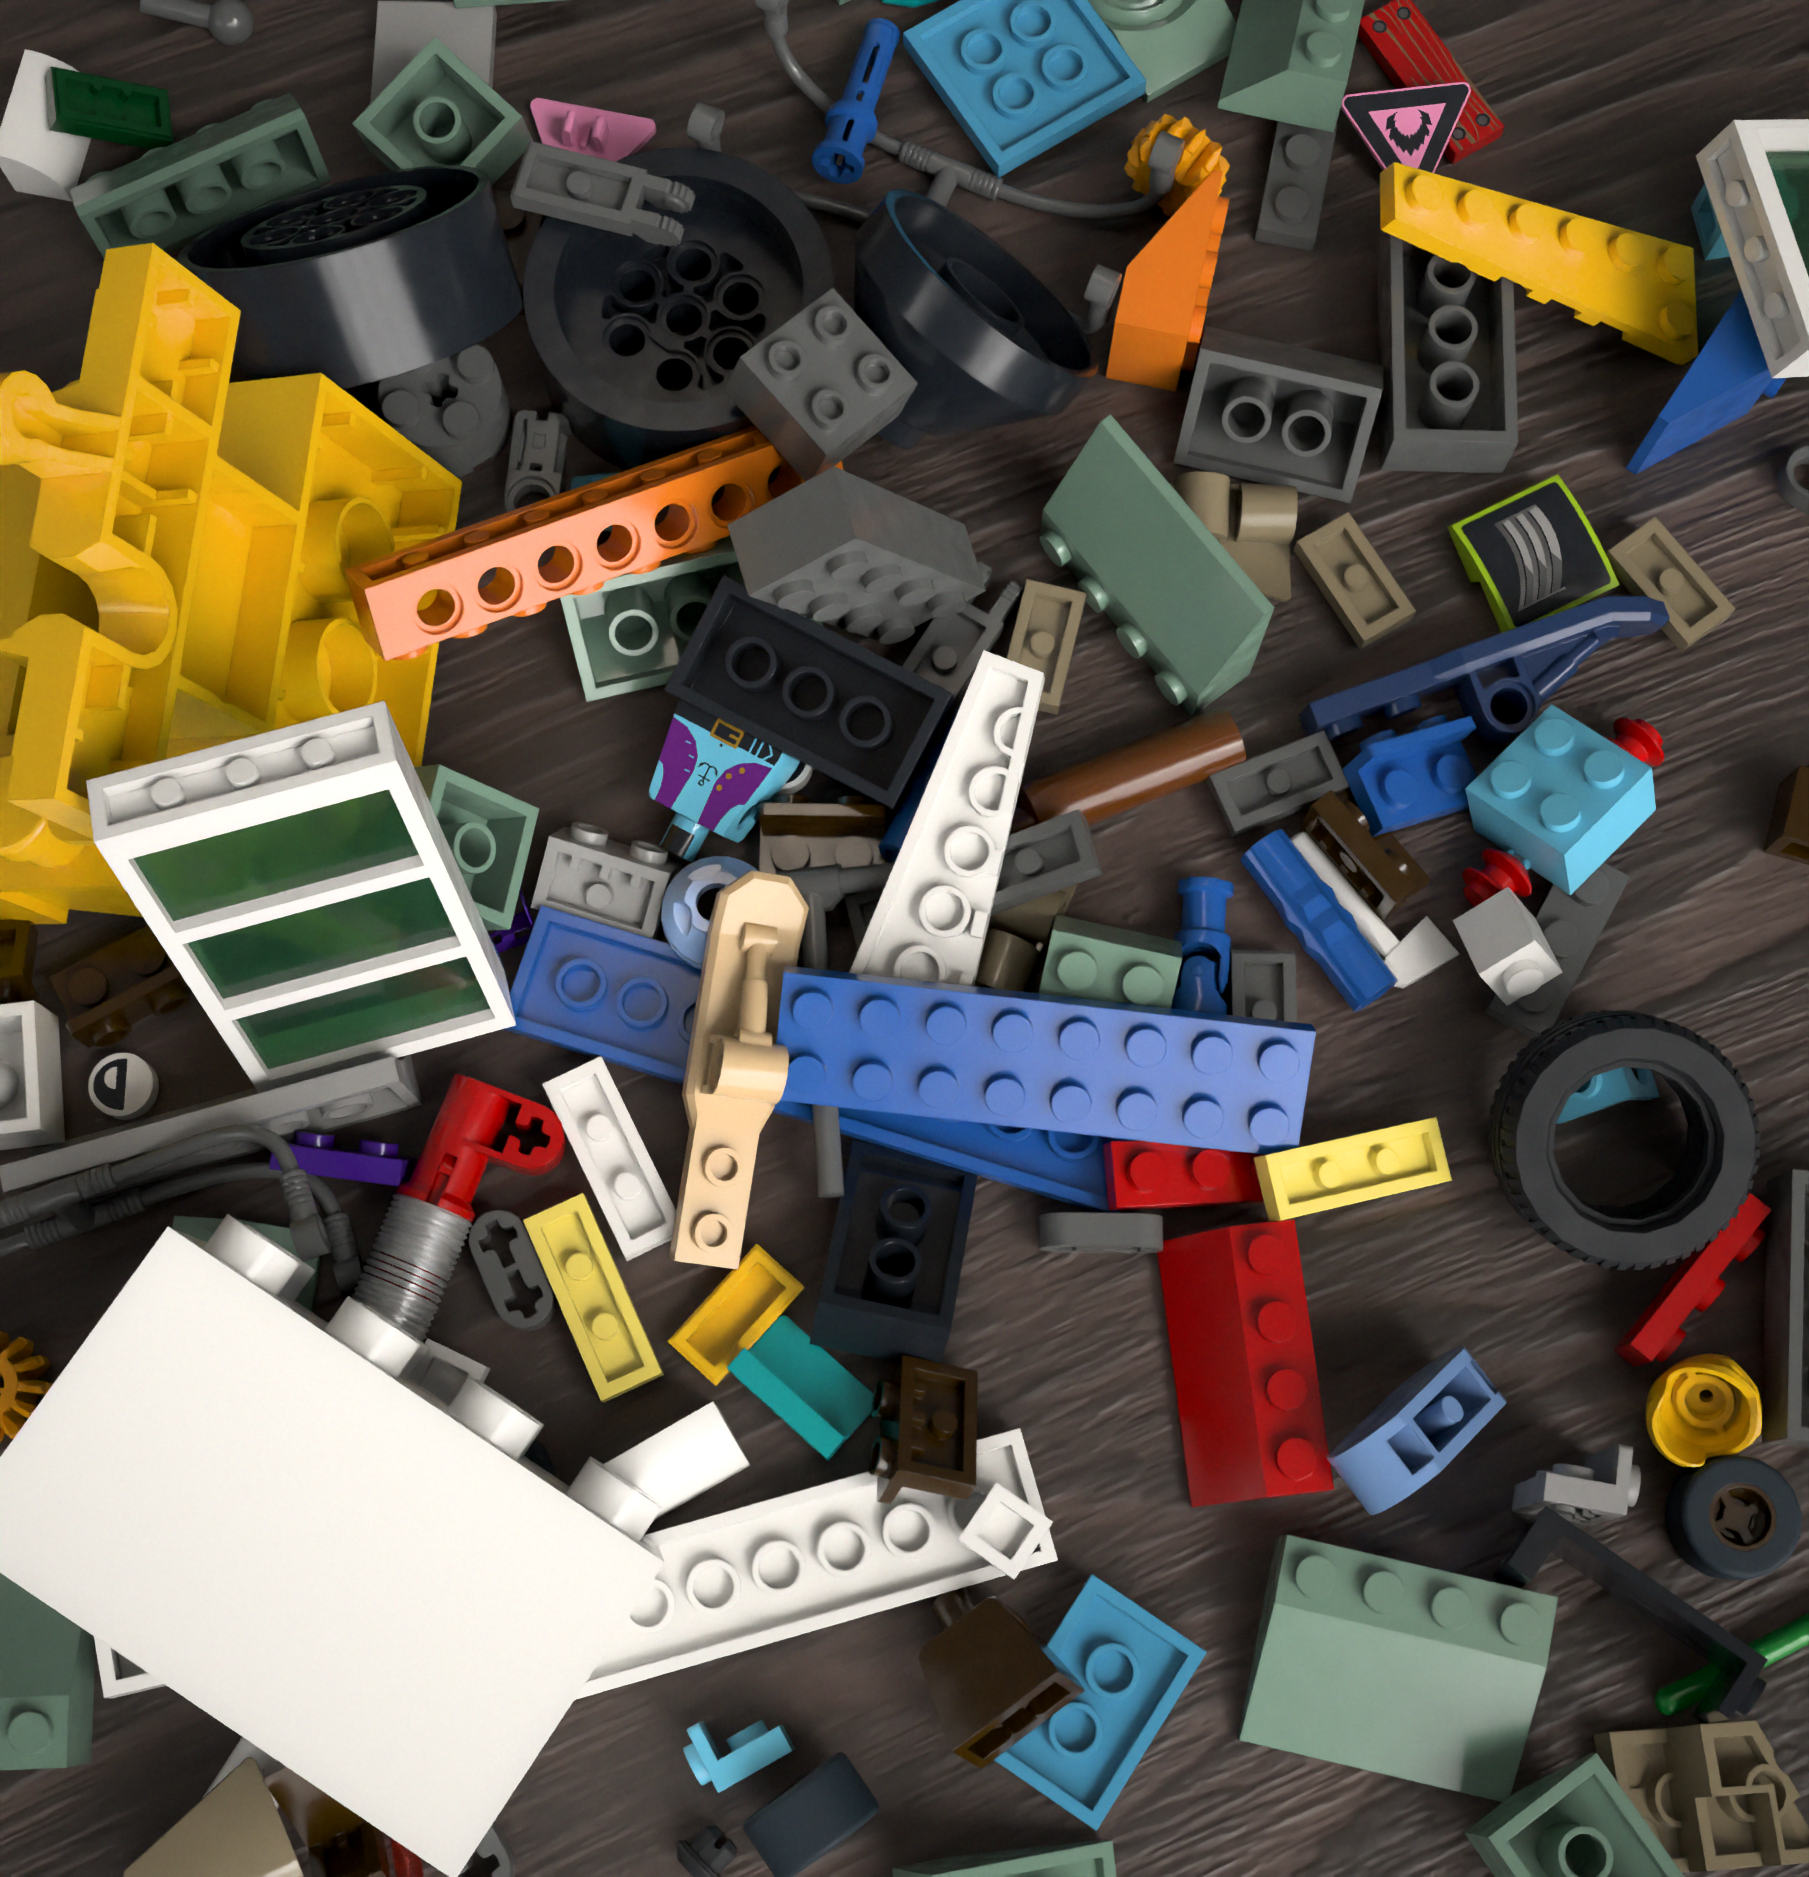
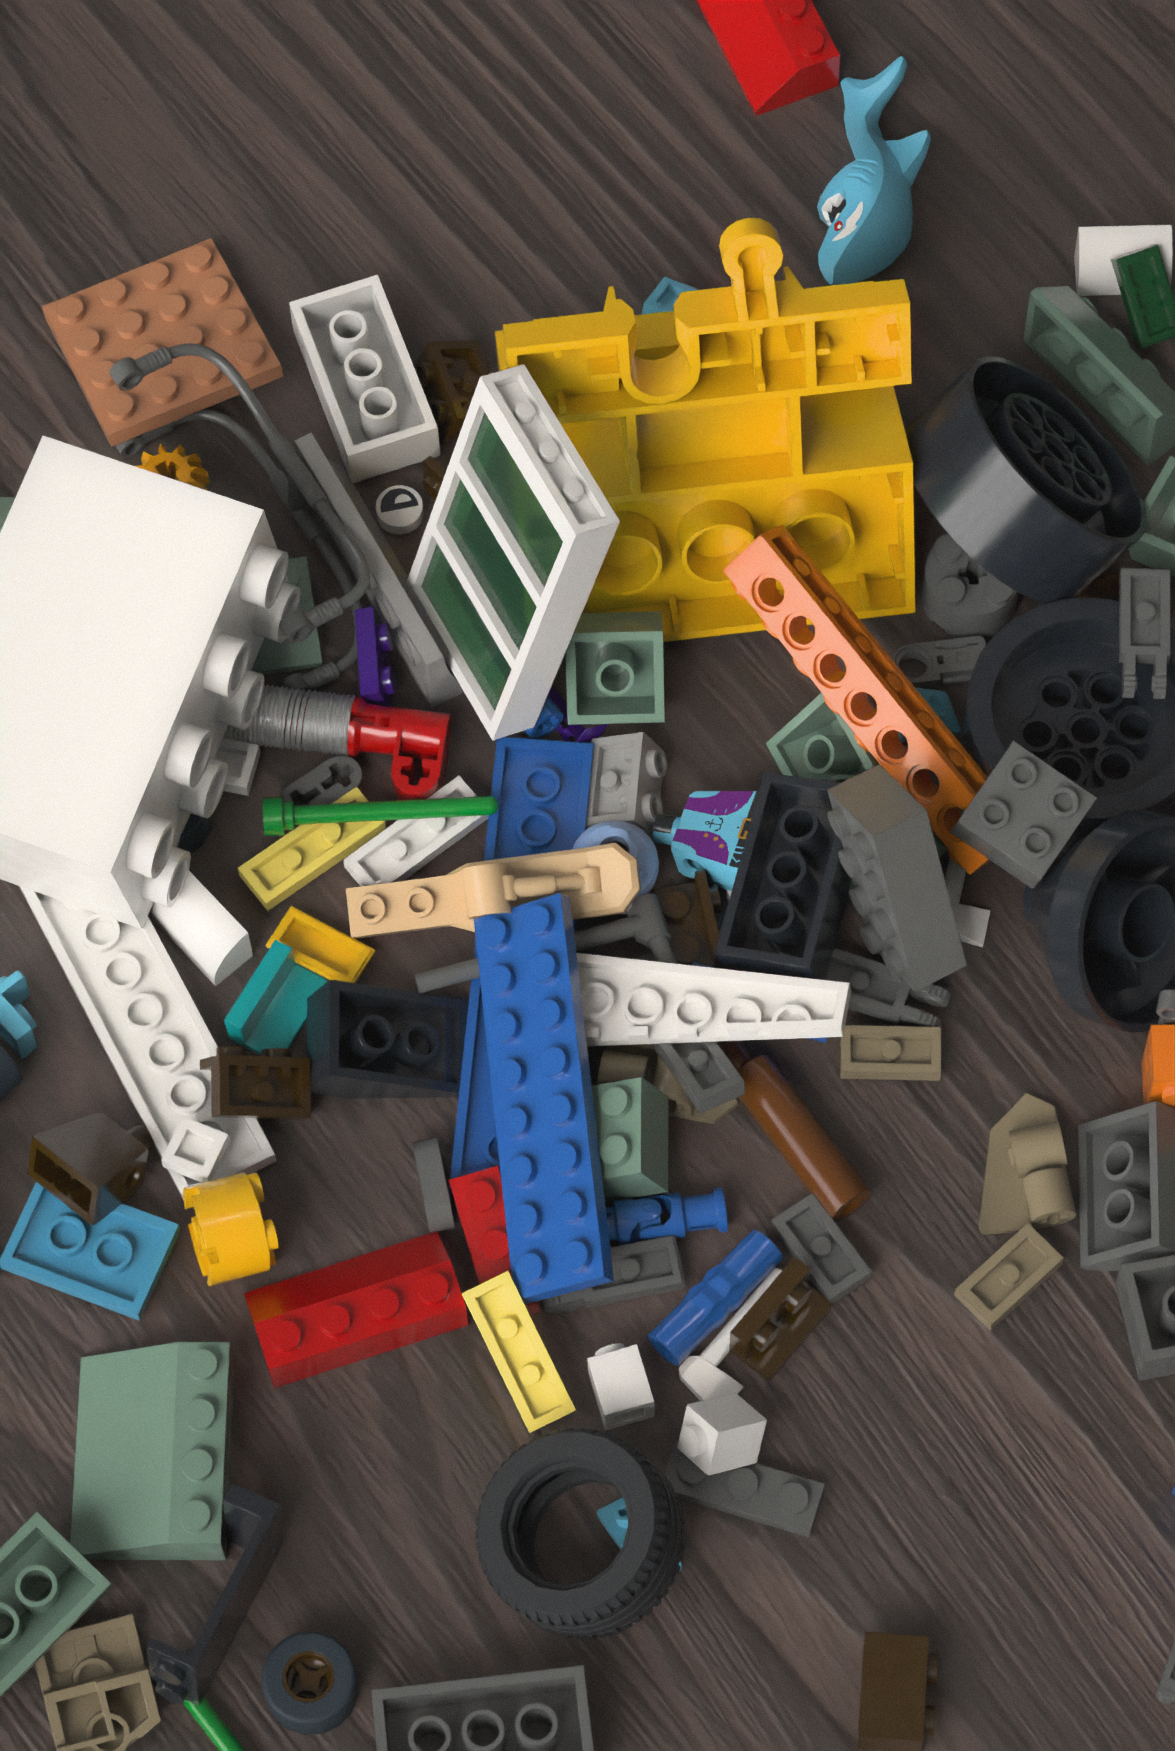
camera: 80 degrees right, 10 degrees down
(545, 1322) = (283, 815): none -> green piece
(1120, 1504) = (229, 1228): none -> yellow brick
(1154, 570) = (958, 1112): sand green slope -> none
(1412, 774) = (850, 1347): blue bracket -> none
(1412, 1056) = (620, 1385): none -> white brick
(1416, 1430) = (324, 1419): medium blue brick -> none
(1515, 666) = (964, 1410): dark blue piece -> none
(1533, 554) = (1068, 1413): slope -> none
(1560, 802) = (853, 1458): medium azure brick -> none
(1585, 1493) = (306, 1568): light grey bracket -> none
(1659, 568) = (1071, 1524): dark tan plate -> none
(1692, 1286) = (486, 1626): red plate -> none
(1693, 1427) = (384, 1638): yellow helmet -> none

